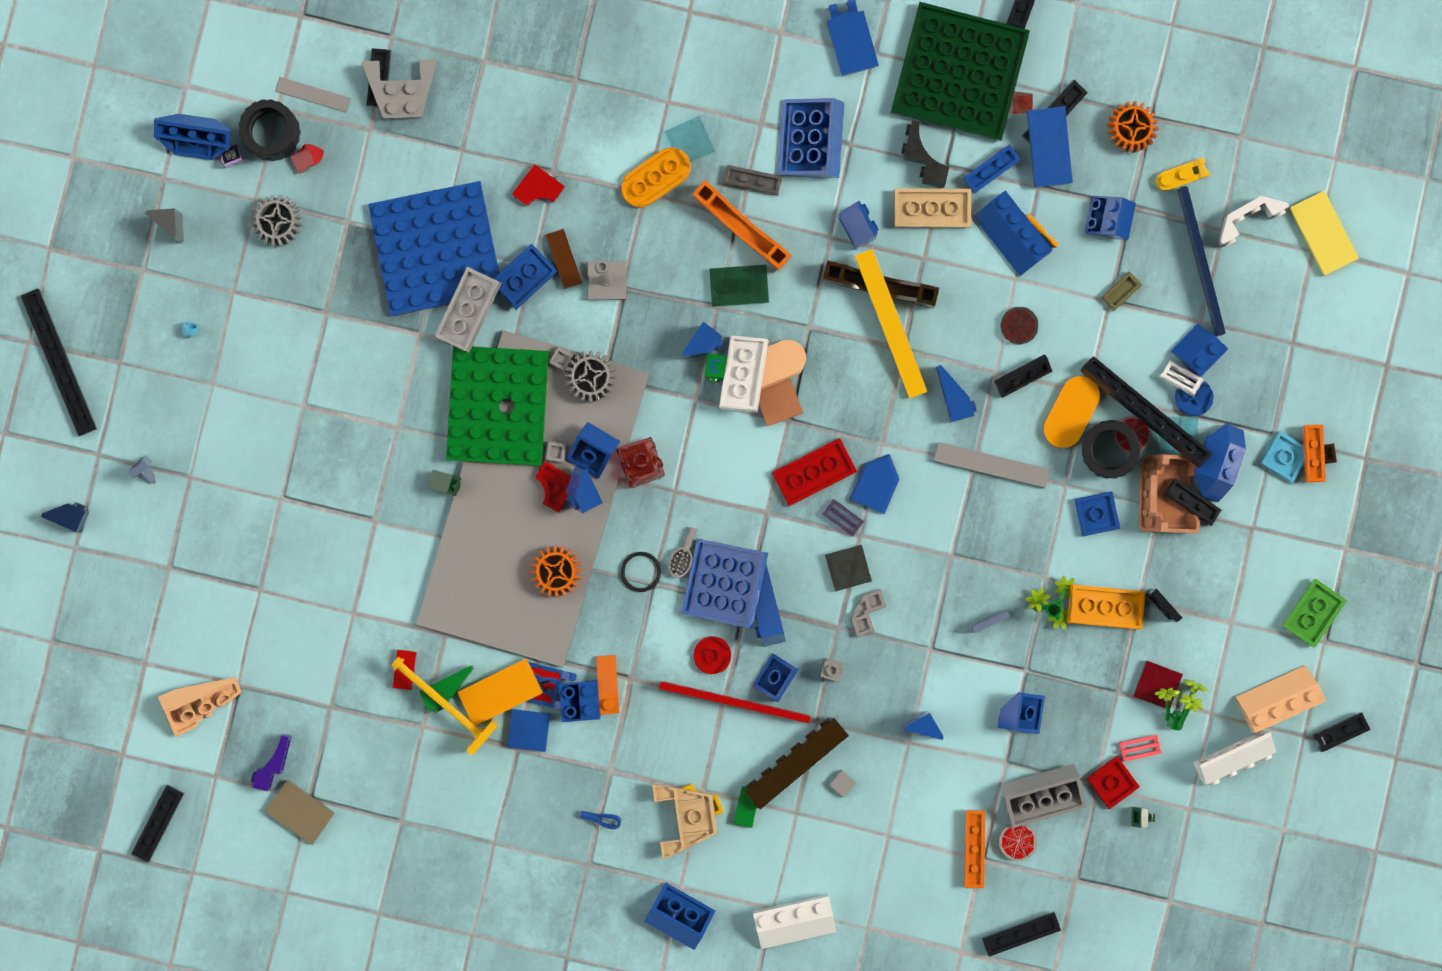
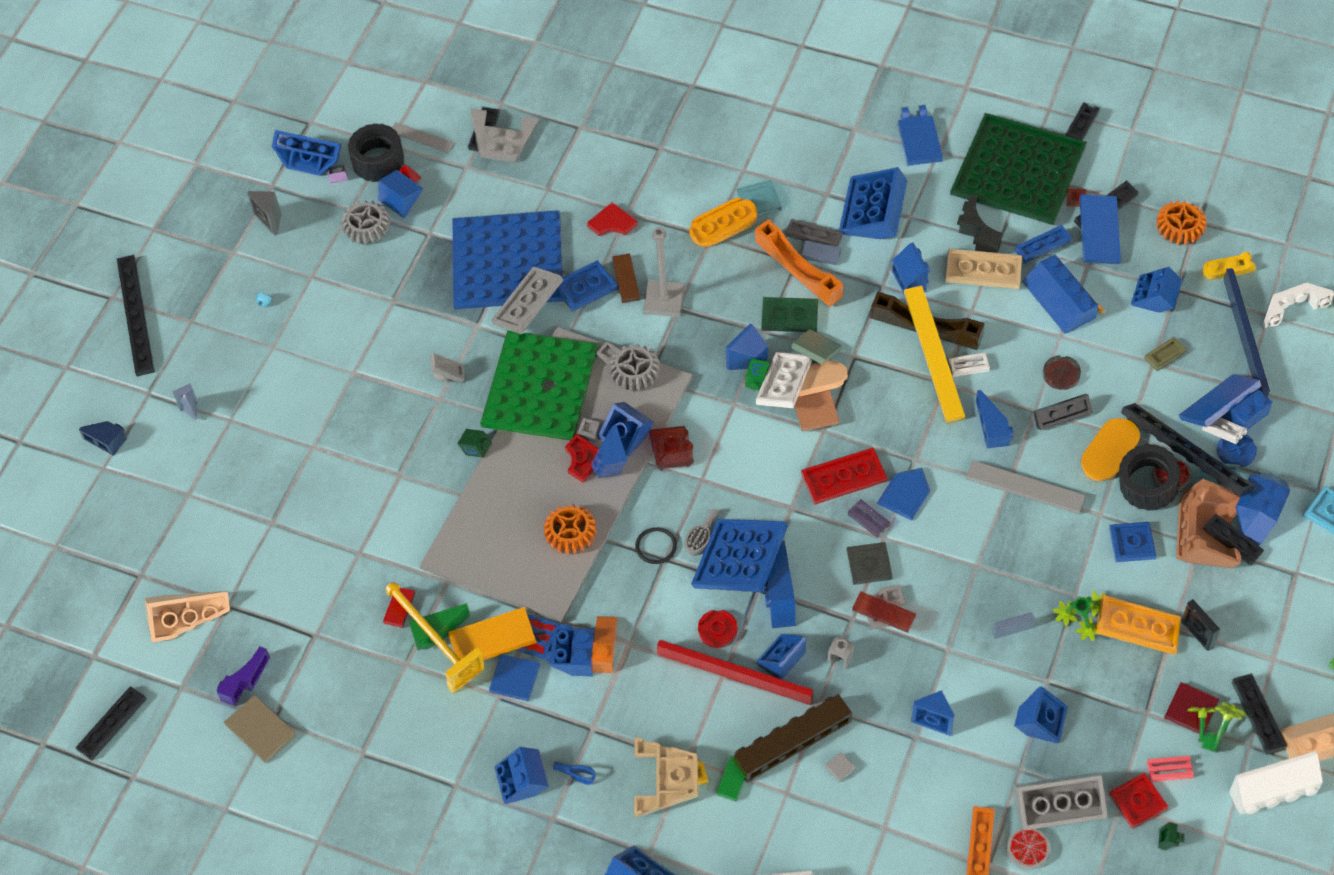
camera: 10 degrees right, 30 degrees down
(305, 179) = (398, 192): none -> blue slope
(400, 398) = (446, 369): none -> light grey tile
(553, 831) = (521, 775): none -> blue slope
(762, 204) = (821, 252): none -> sand blue tile
(771, 327) = (816, 346): none -> sand green tile
(868, 623) = (884, 612): none -> clear red tile
(910, 331) = (970, 366): none -> white tile
(1177, 347) = (1220, 400): none -> blue tile
(1218, 684) = (1259, 713): none -> black plate

